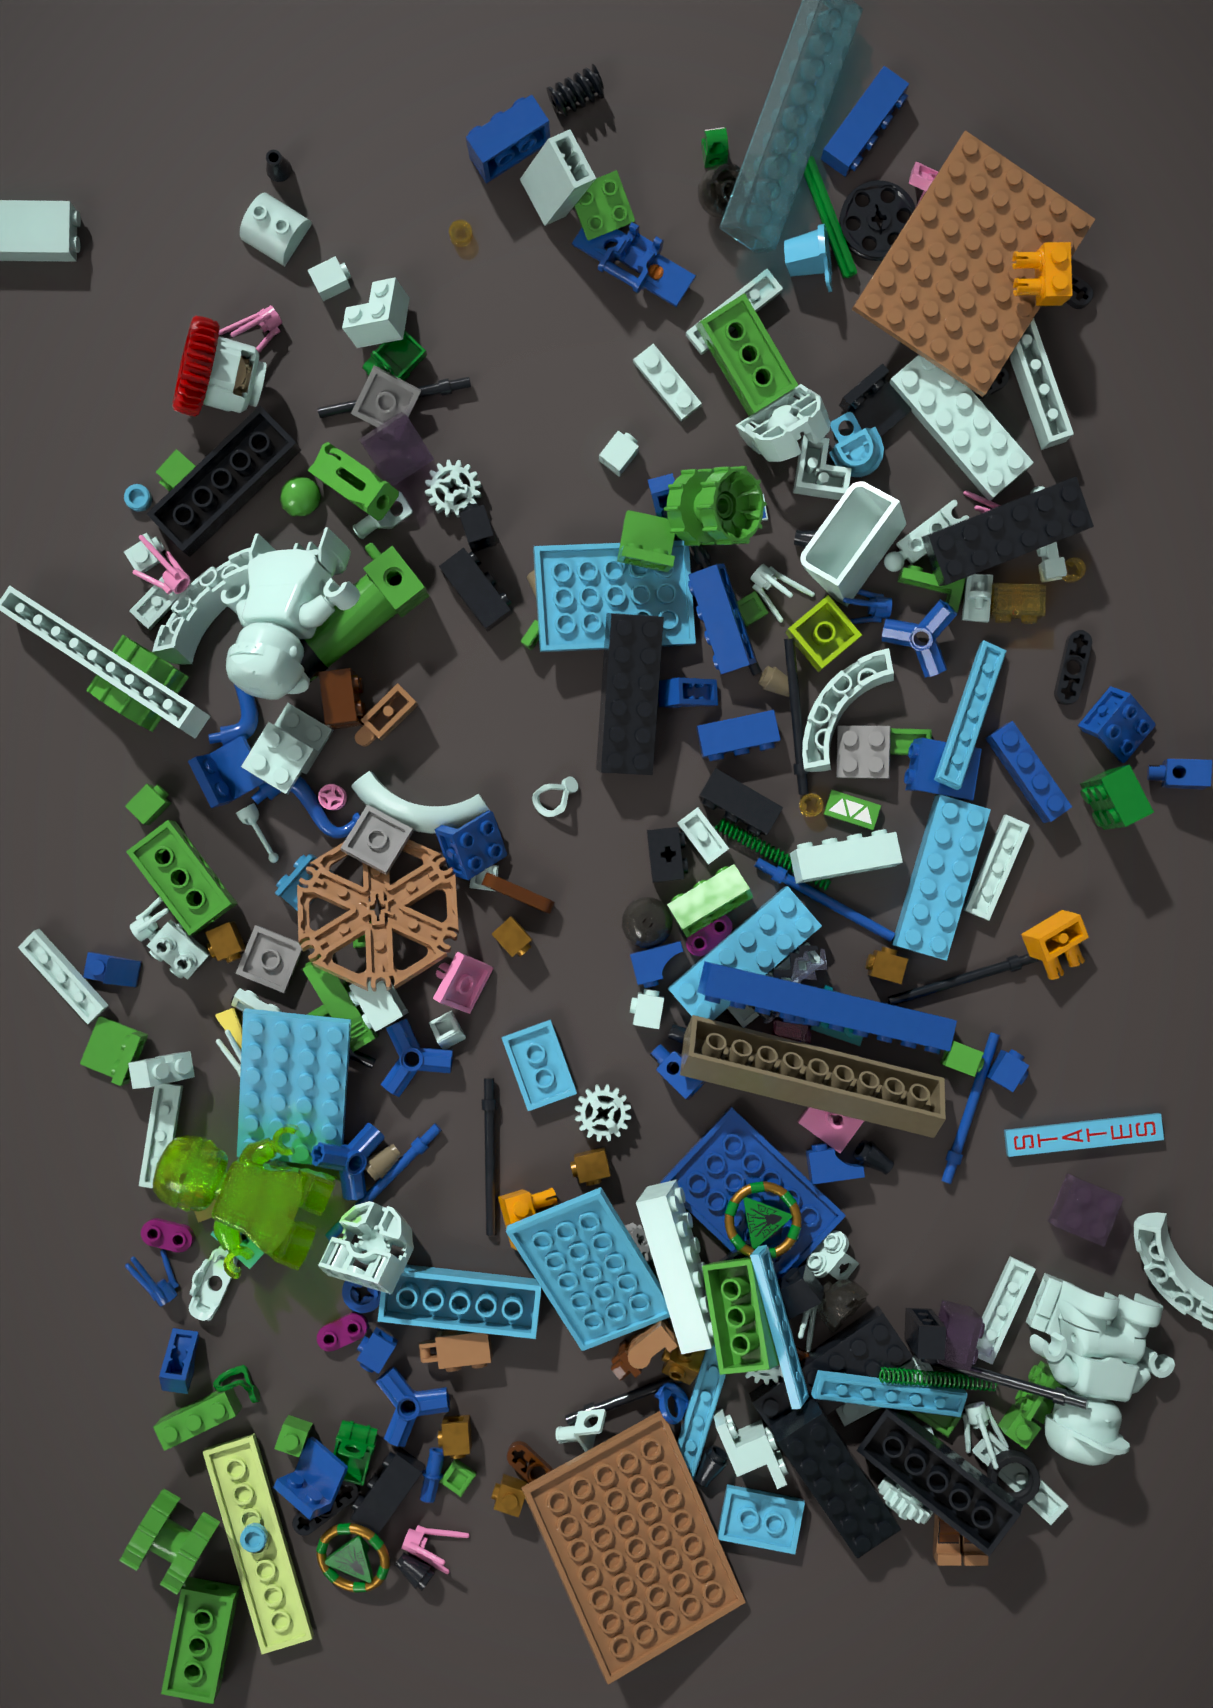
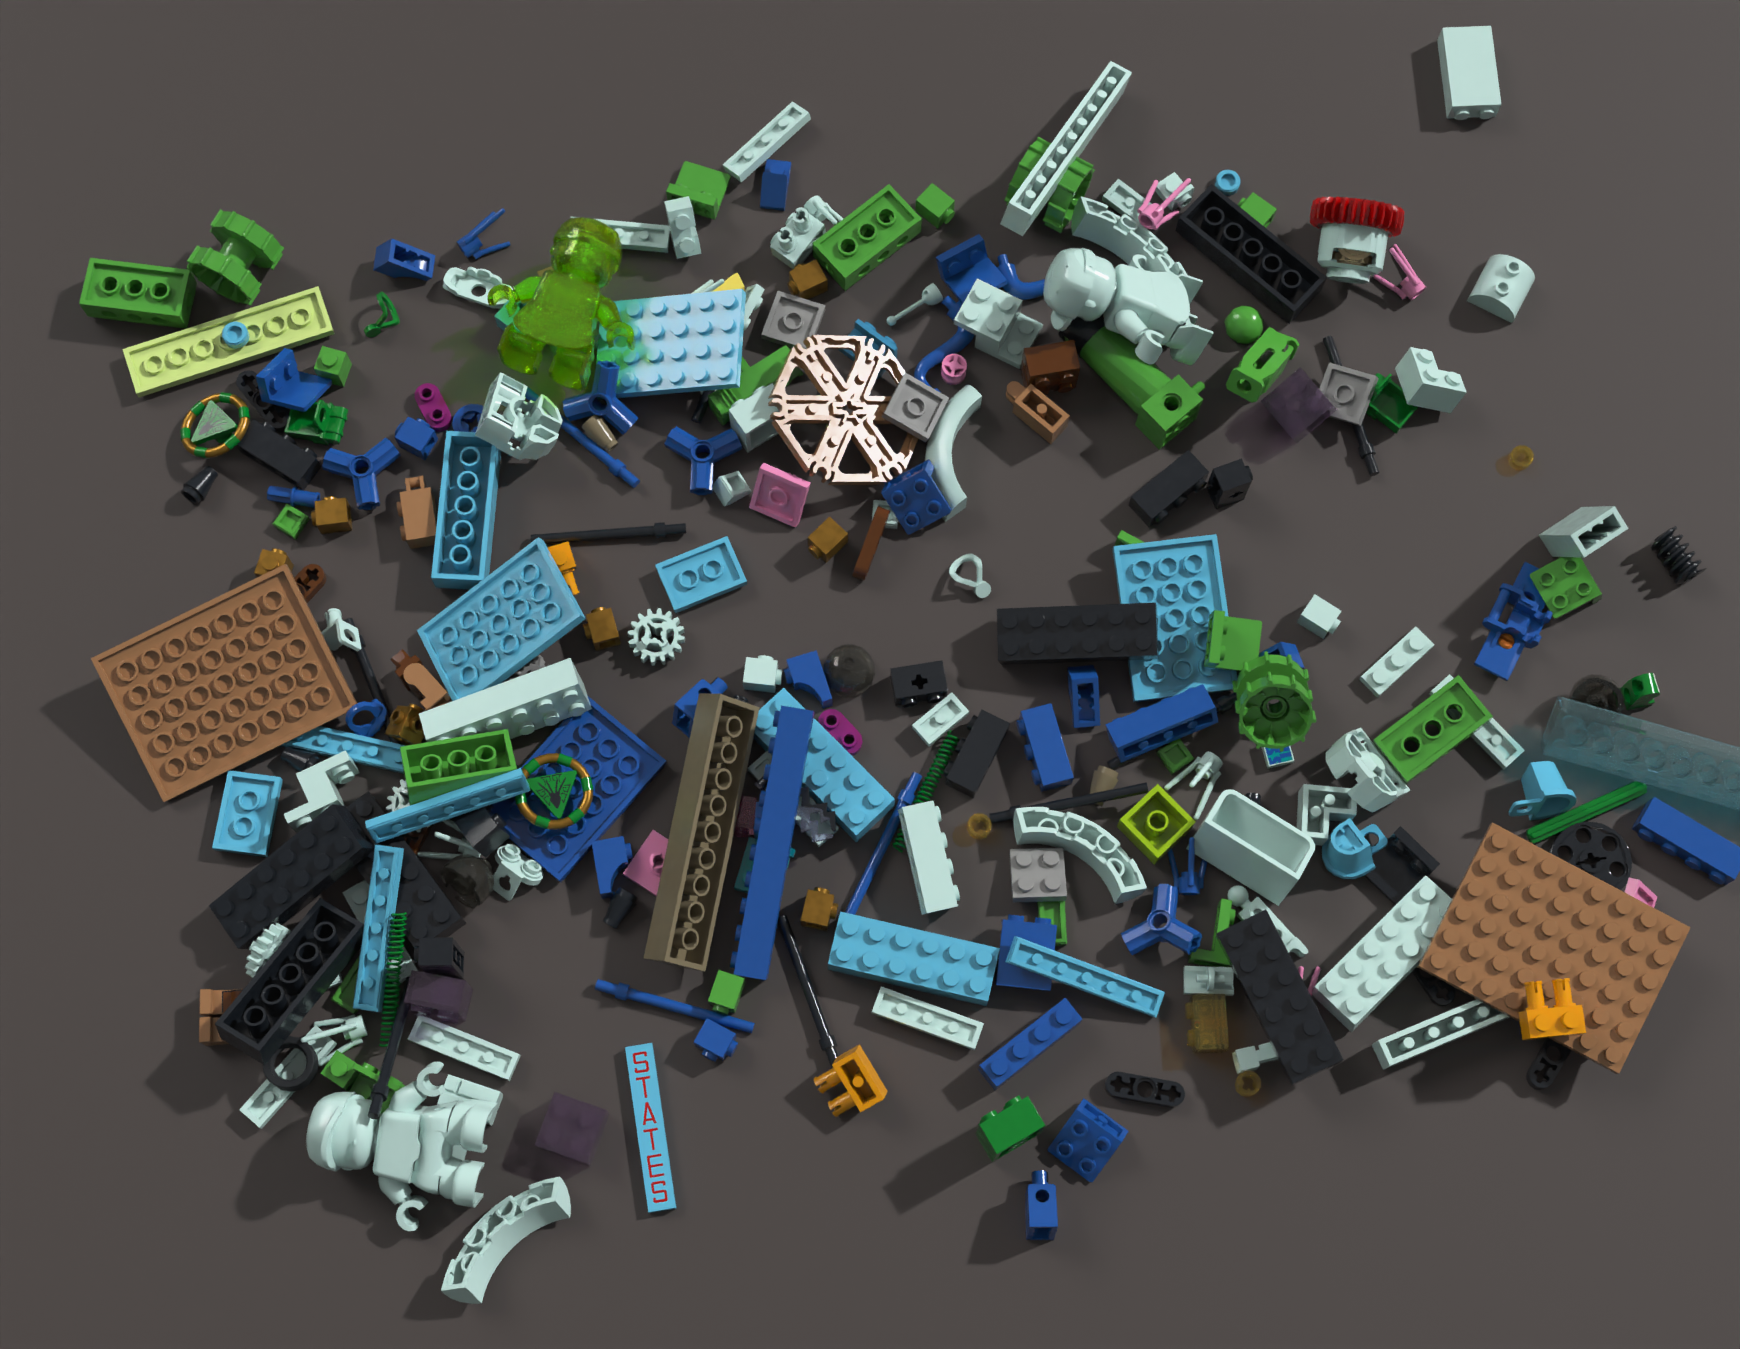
camera: 85 degrees right, 15 degrees down
(166, 1235) = (523, 244): magenta plate -> none
(197, 1417) = (351, 280): bright green brick -> none
(277, 166) = (1562, 286): black cone -> none
(330, 278) = (1459, 338): light aqua brick -> none
(389, 521) = (1231, 402): light aqua bracket -> none
(415, 1545) = (227, 485): bright pink plant -> none
(442, 485) = (1277, 459): light aqua gear -> none
(508, 138) = (1613, 482): blue brick -> none
(710, 900) = (875, 727): brick -> none
(852, 810) = (977, 868): bright green tile -> none

